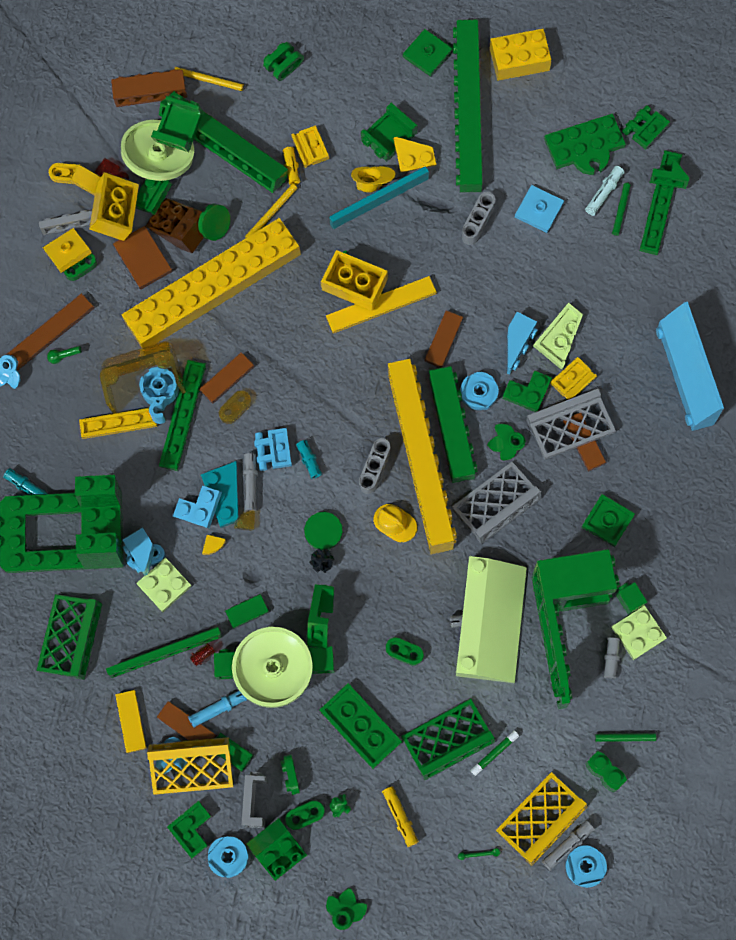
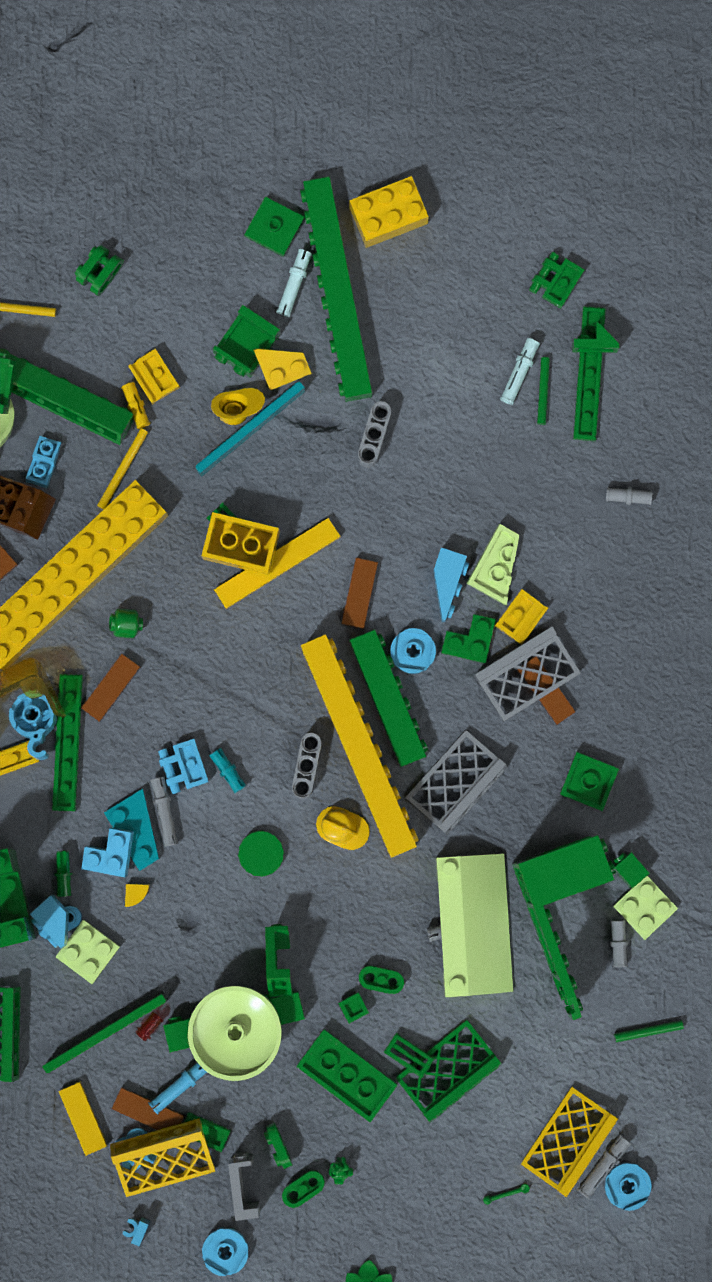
camera: 15 degrees left, 10 degrees up
(157, 517) = (63, 874): none -> green axle
(158, 824) = (139, 1230): none -> medium azure tile
(185, 829) = (171, 1230): green plate -> none
(210, 193) = (43, 462): none -> medium azure slope
(214, 222) = (57, 497): green tile -> none
(237, 408) = (128, 722): clear yellow plate -> none
(245, 521) = (168, 859): clear yellow tile -> none
(247, 611) = (190, 965): green tile -> none
(249, 328) = (125, 623): none -> green head
(276, 849) = (278, 1233): green slope -> none
(321, 560) = (266, 891): black gear -> none
(376, 670) = (353, 1007): none -> green plate
(402, 821) = (412, 1172): yellow pin -> none
(428, 730) = (425, 1066): none -> green tile
(438, 89) = (294, 282): none -> light aqua pin
(494, 753) = (504, 1076): green bar -> none
(503, 442) = (452, 709): green plate -> none
(539, 209) = (445, 408): medium azure plate -> none
(585, 144) = (487, 314): green plate -> none
(609, 775) = (629, 1074): green brick -> none
(677, 299) = (629, 495): none -> light grey pin
(690, 368) = (655, 582): medium azure slope -> none

